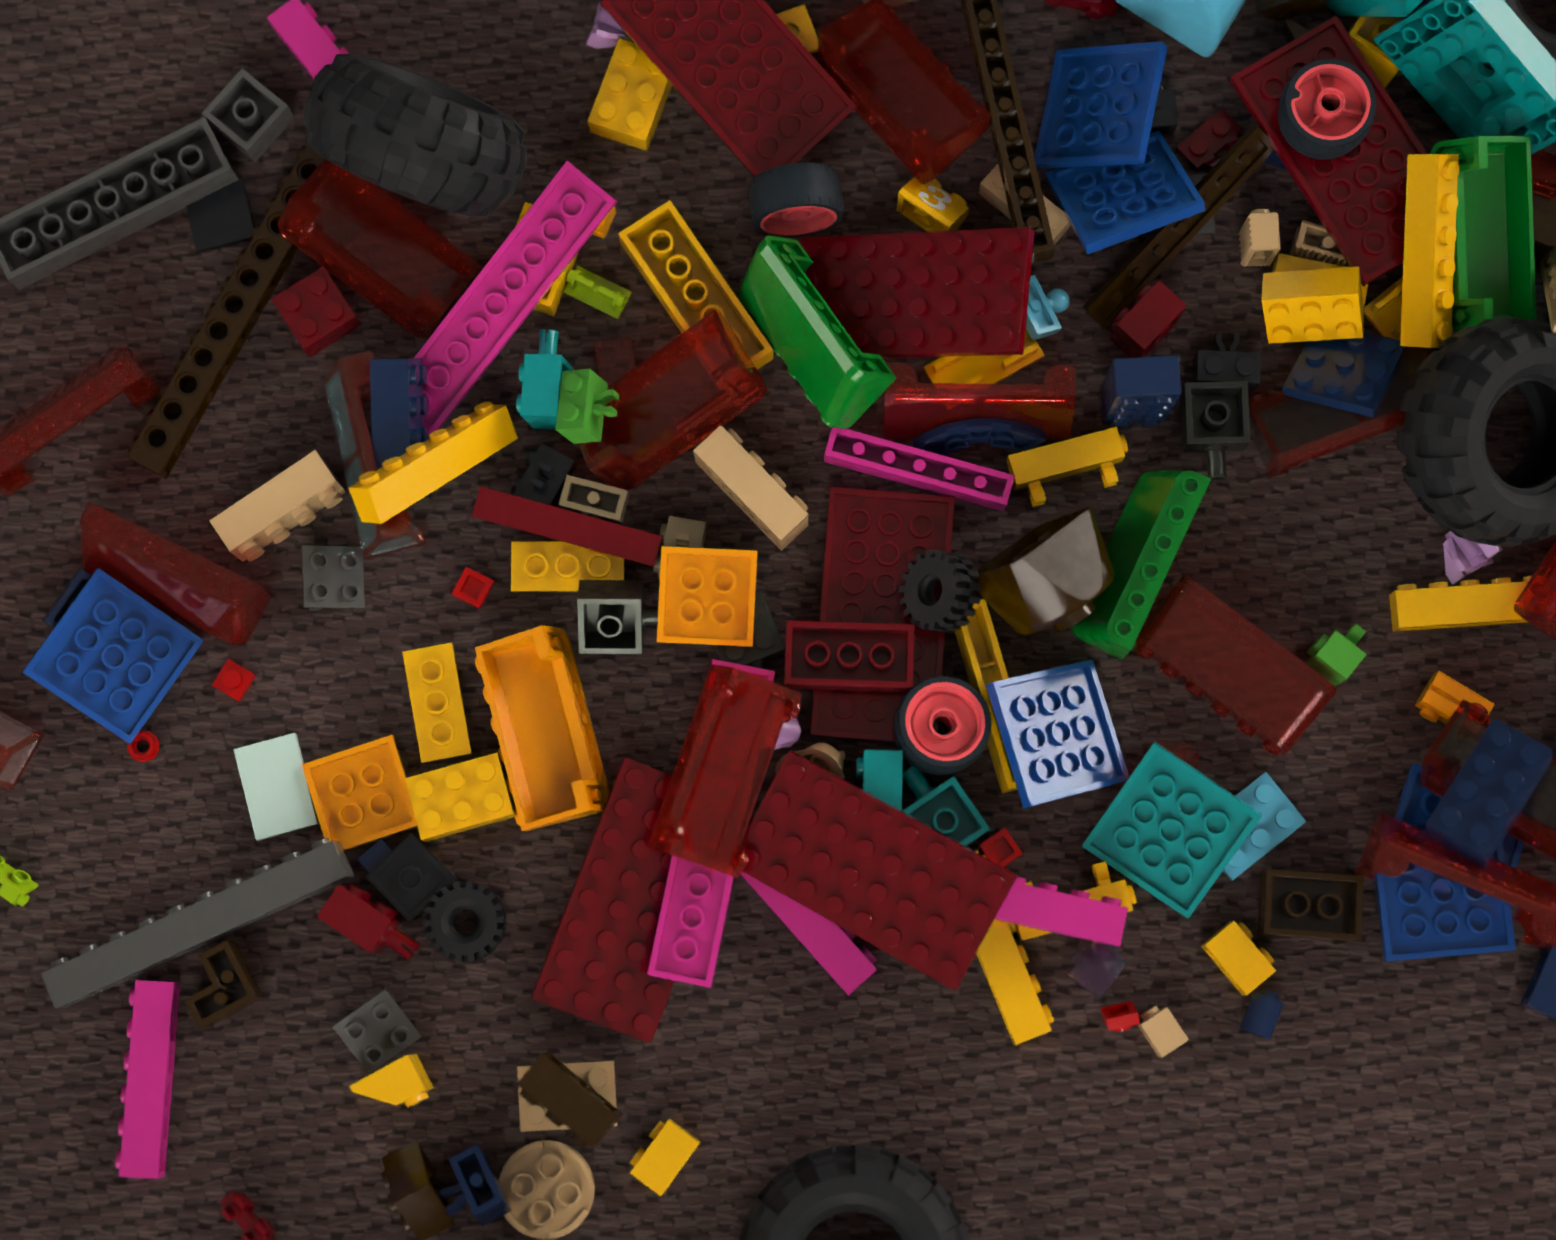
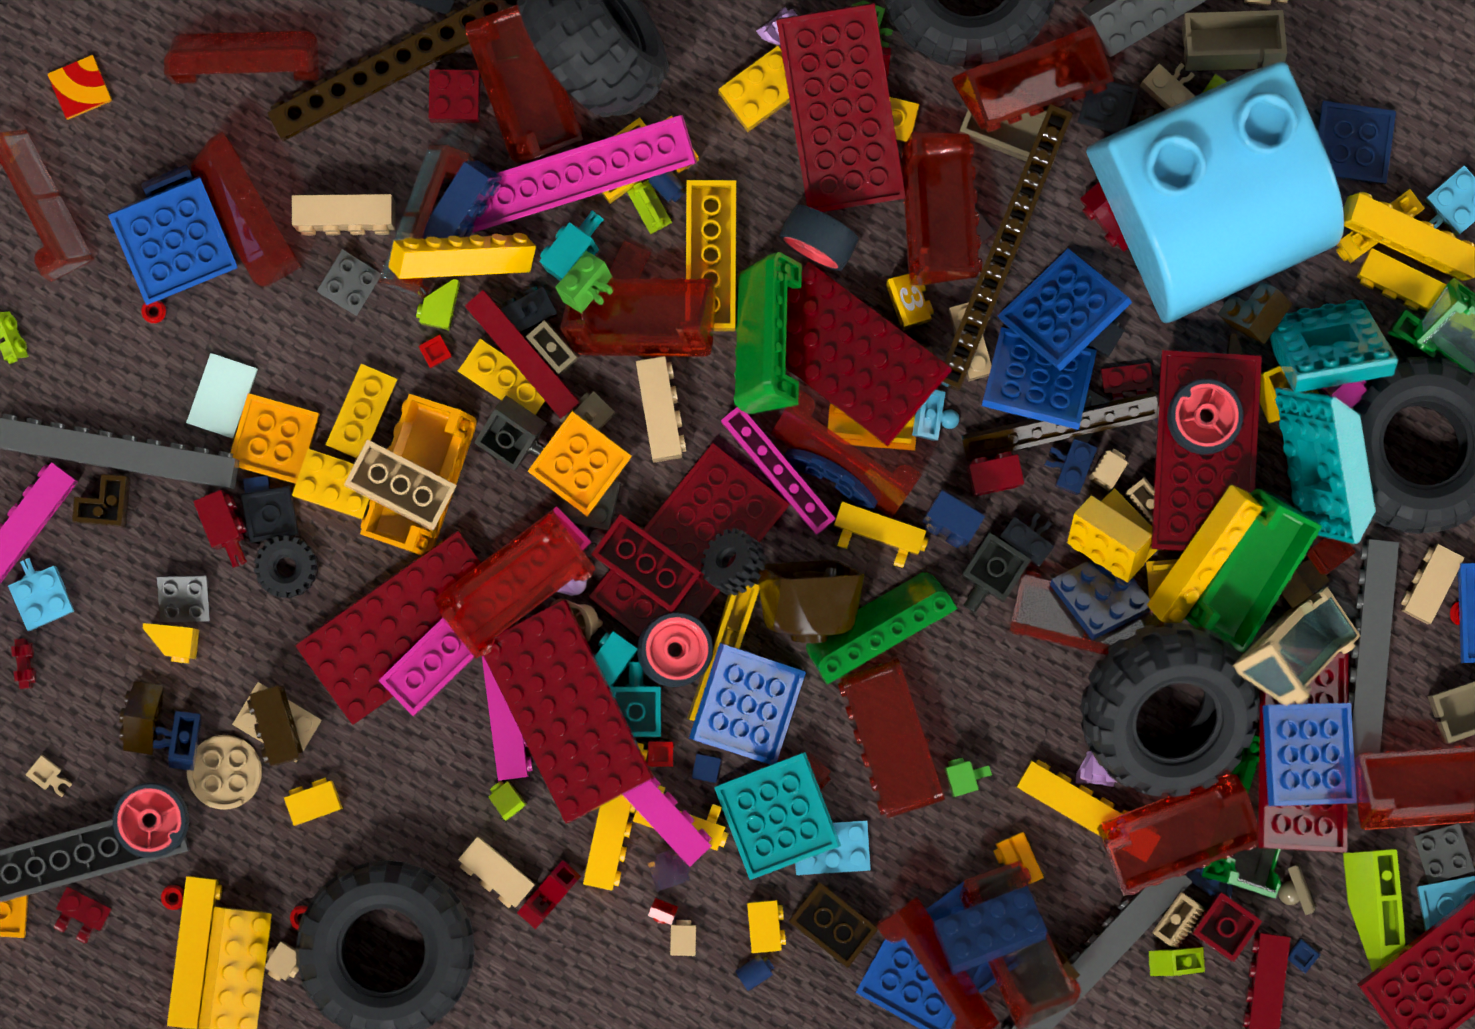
camera: 30 degrees right, 5 degrees up
(218, 1134) = (40, 596): none -> medium azure plate
(234, 680) = (240, 307): red plate -> none
(445, 538) = (439, 306): none -> lime slope
(530, 748) = (399, 485): none -> tan brick
(601, 255) = (668, 186): none -> dark blue brick
(871, 1010) = (506, 799): none -> lime slope
(913, 1097) = (496, 873): none -> tan brick
(986, 1081) = (549, 894): none -> dark red brick
(1058, 832) = (706, 768): none -> dark blue tile
(1220, 260) = (1075, 466): none -> dark blue brick

